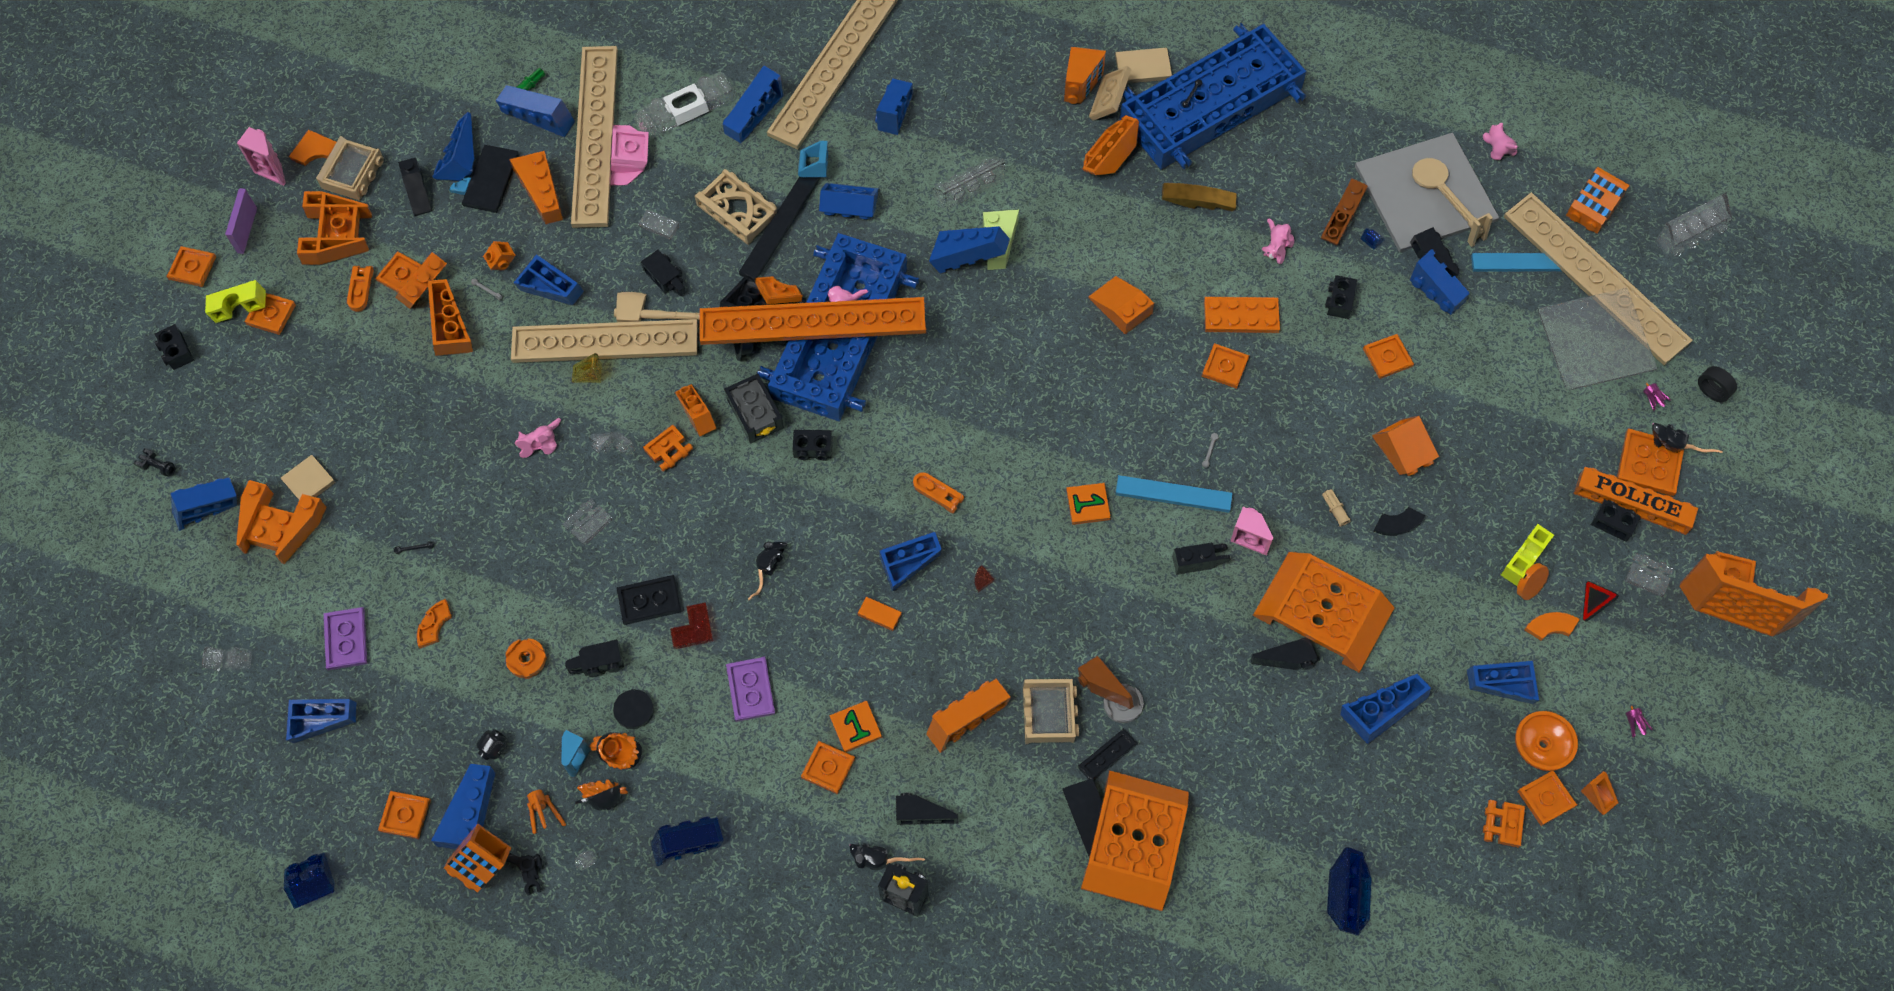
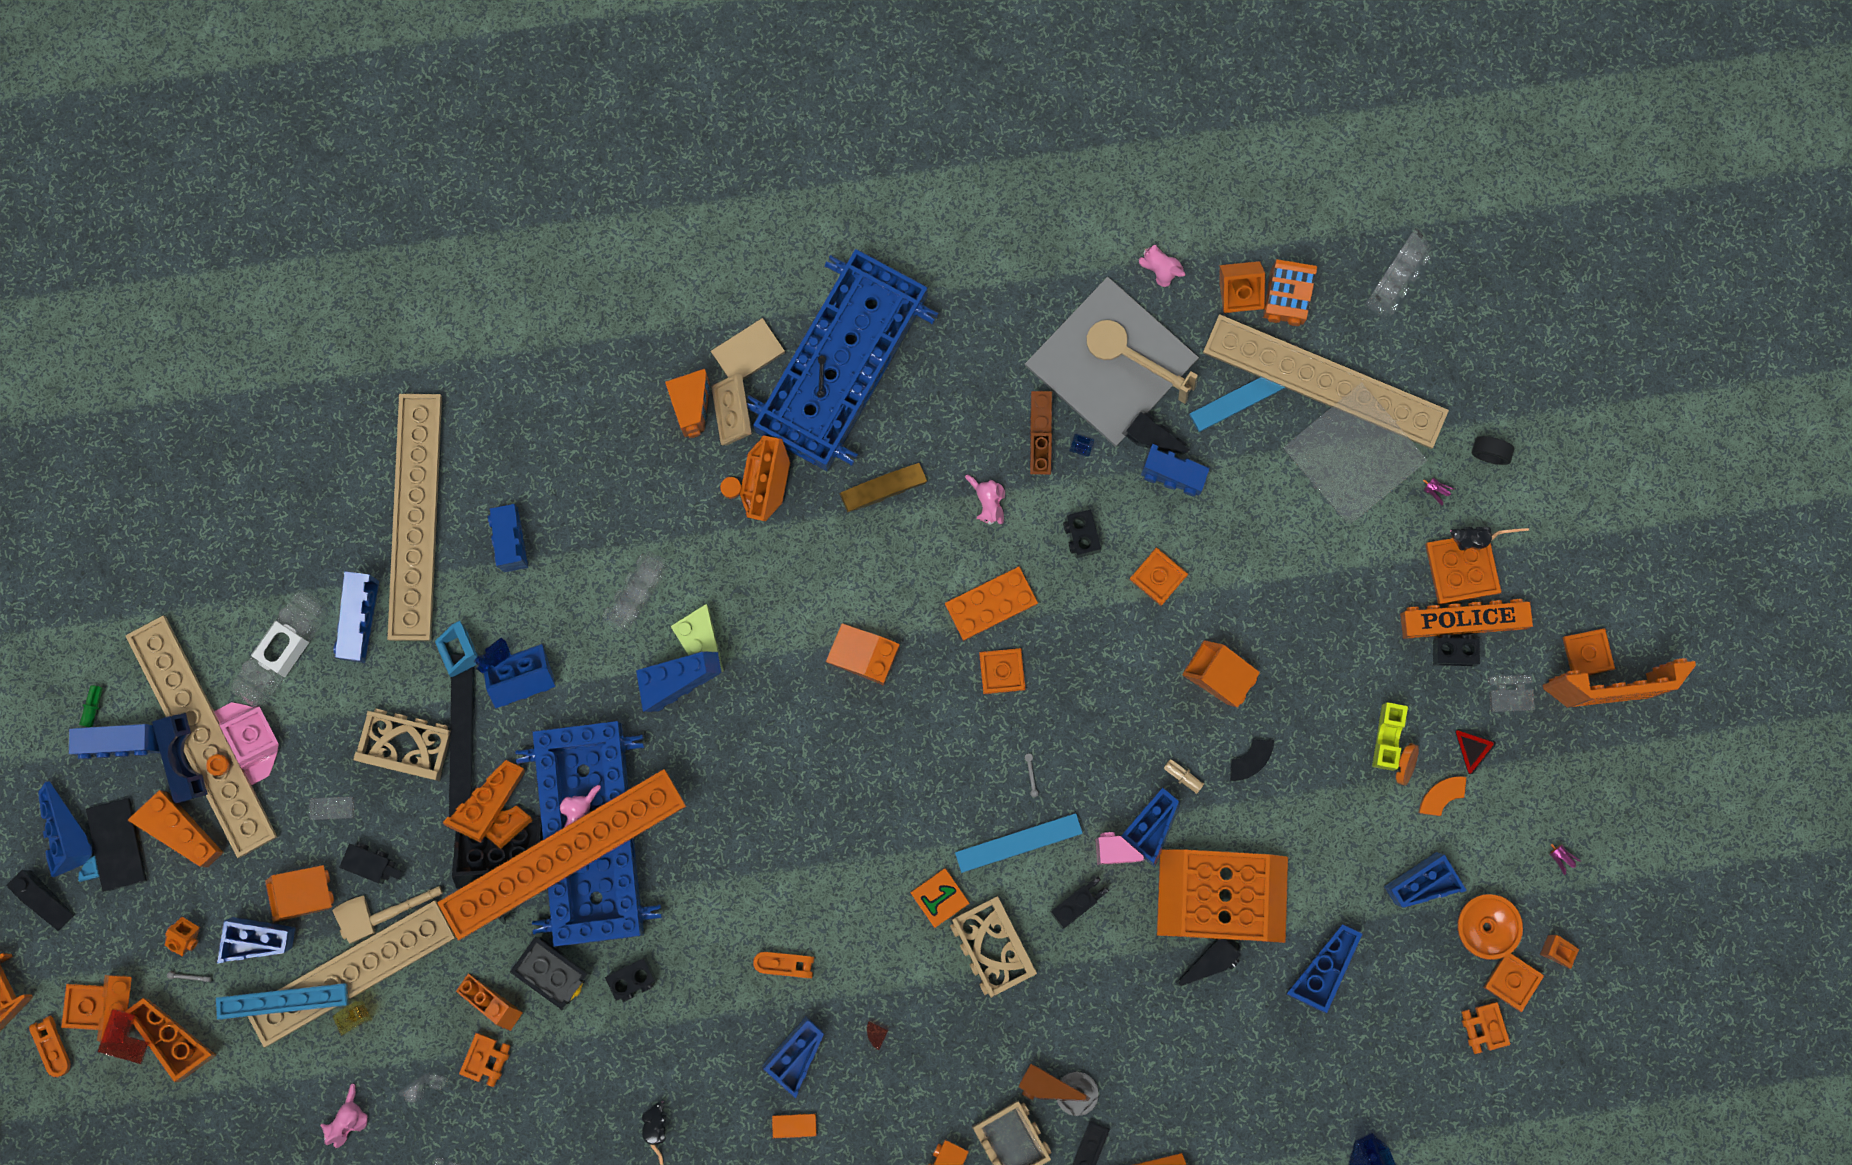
camera: 30 degrees left, 15 degrees up
(411, 295) = (116, 1039): none -> clear red plate
(543, 332) = (282, 1001): none -> dark azure tile
(575, 119) = (183, 781): none -> dark blue arch
(595, 156) = (218, 765): none -> orange tile
(601, 266) = (299, 893): none -> orange slope
(775, 269) = (486, 802): none -> orange wing
(840, 176) = (494, 655): none -> clear blue plate
(1080, 147) = (730, 487): none -> orange tile
(1128, 537) = (1019, 961): none -> tan fence
(1293, 527) = (1152, 826): none -> blue wedge
(1559, 184) = (1242, 286): none -> orange slope

